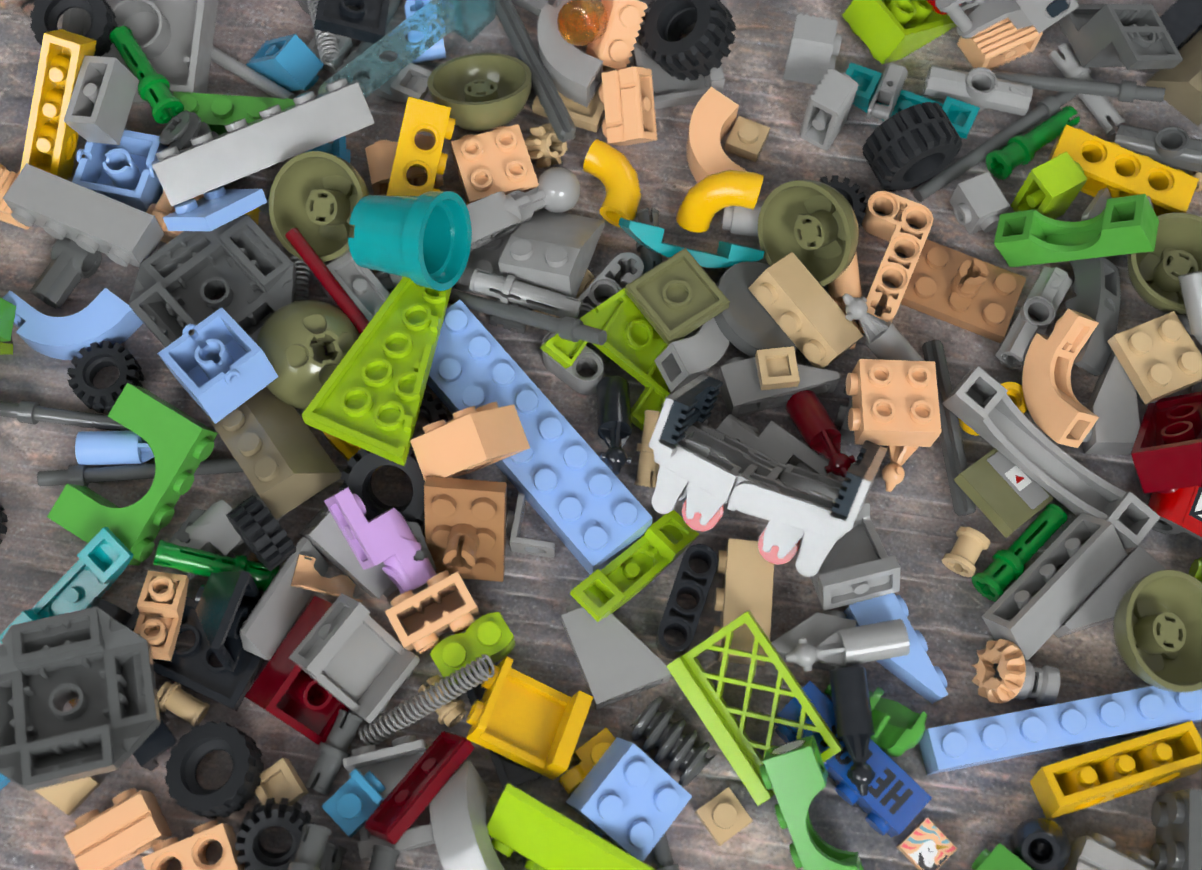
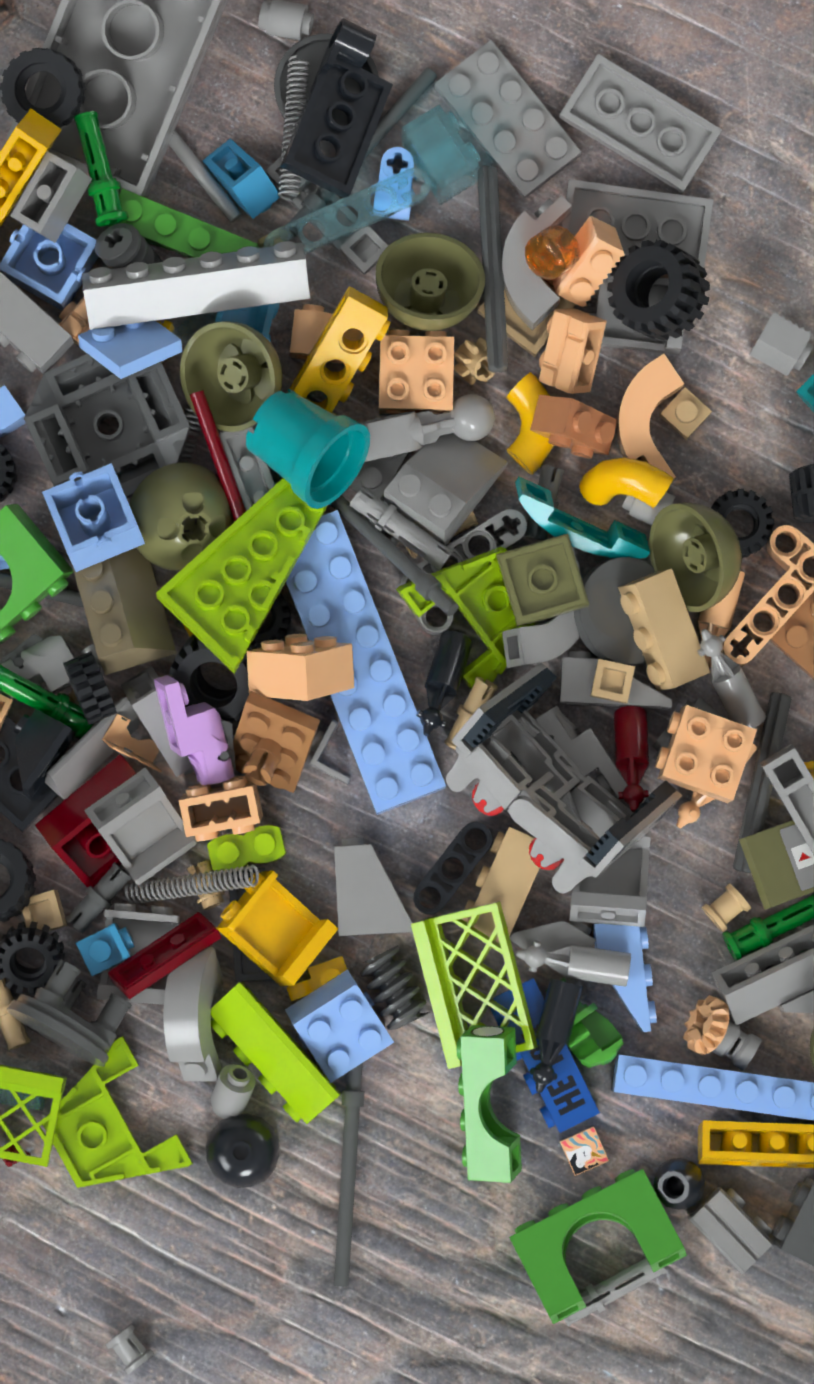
camera: 20 degrees right, 15 degrees up
(635, 567) = (412, 824): lime slope -> none
(653, 164) = (573, 426): none -> nougat brick
(723, 816) = (418, 1066): tan plate -> none
(828, 108) = (774, 417): light grey brick -> none

